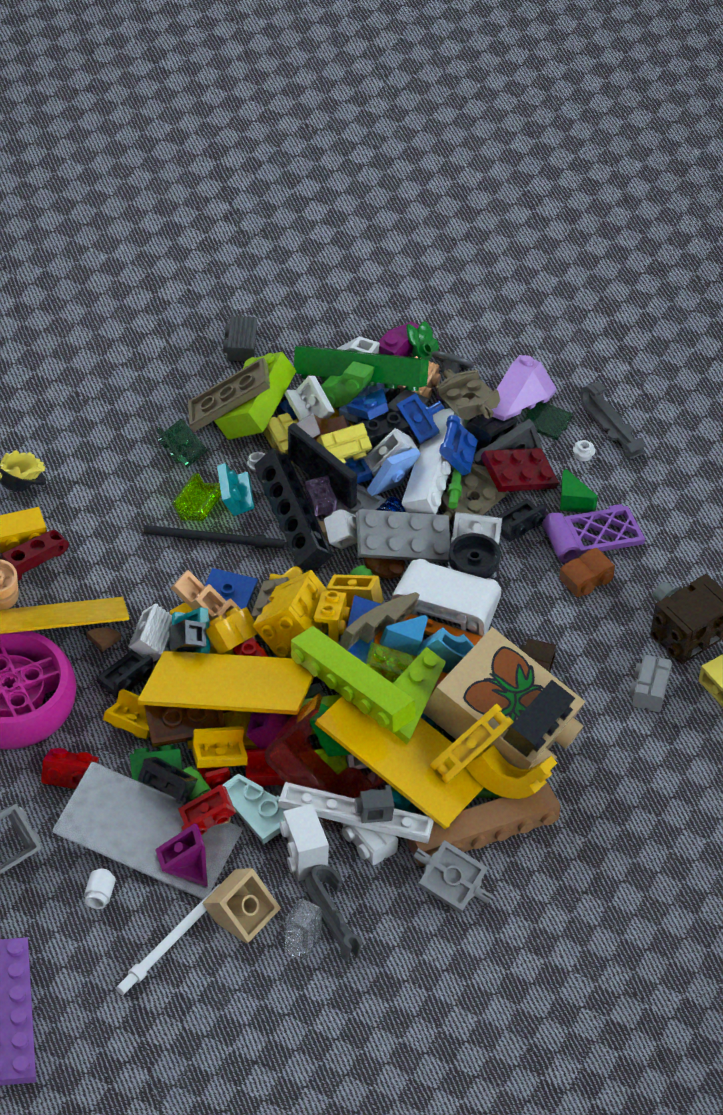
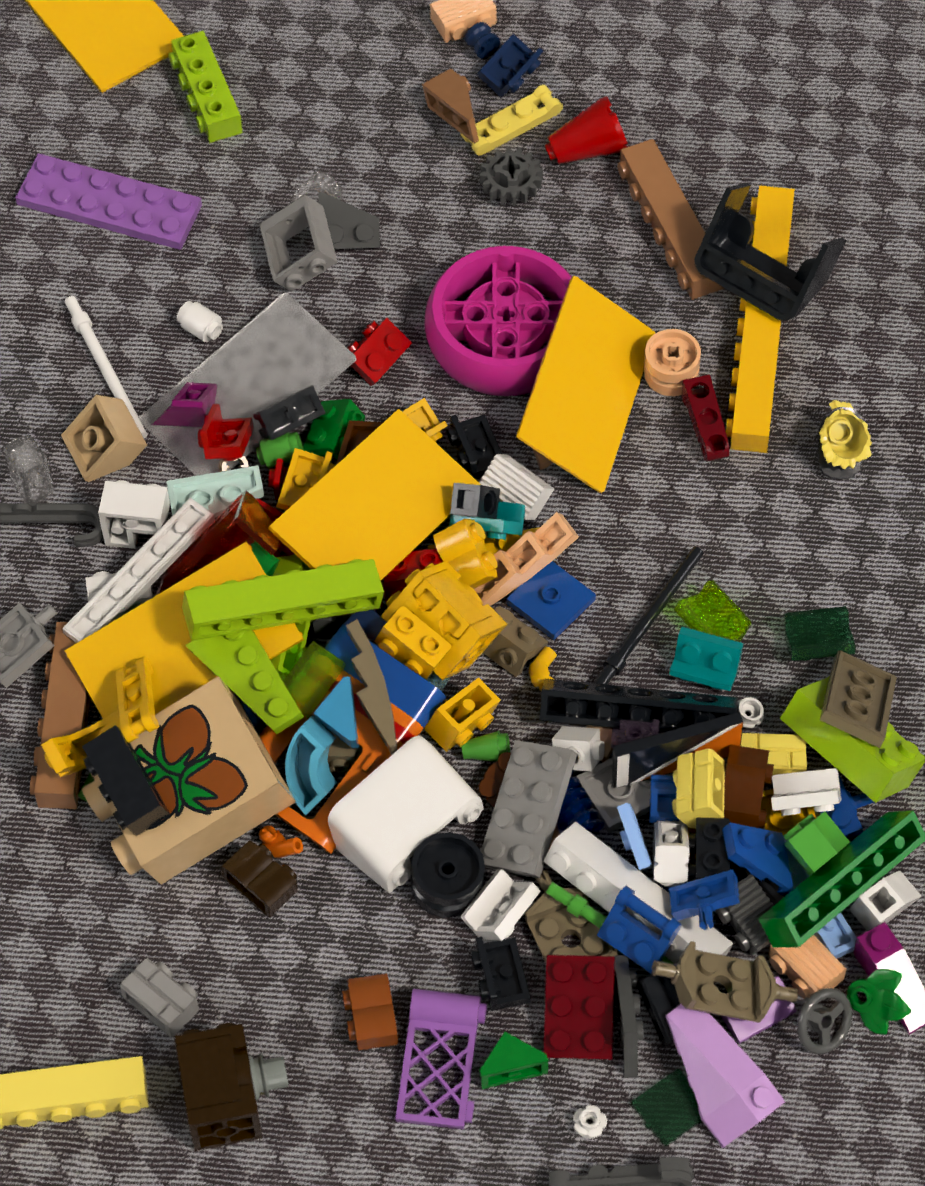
camera: 120 degrees right, 10 degrees up
(375, 805) = (122, 578): dark grey brick -> none

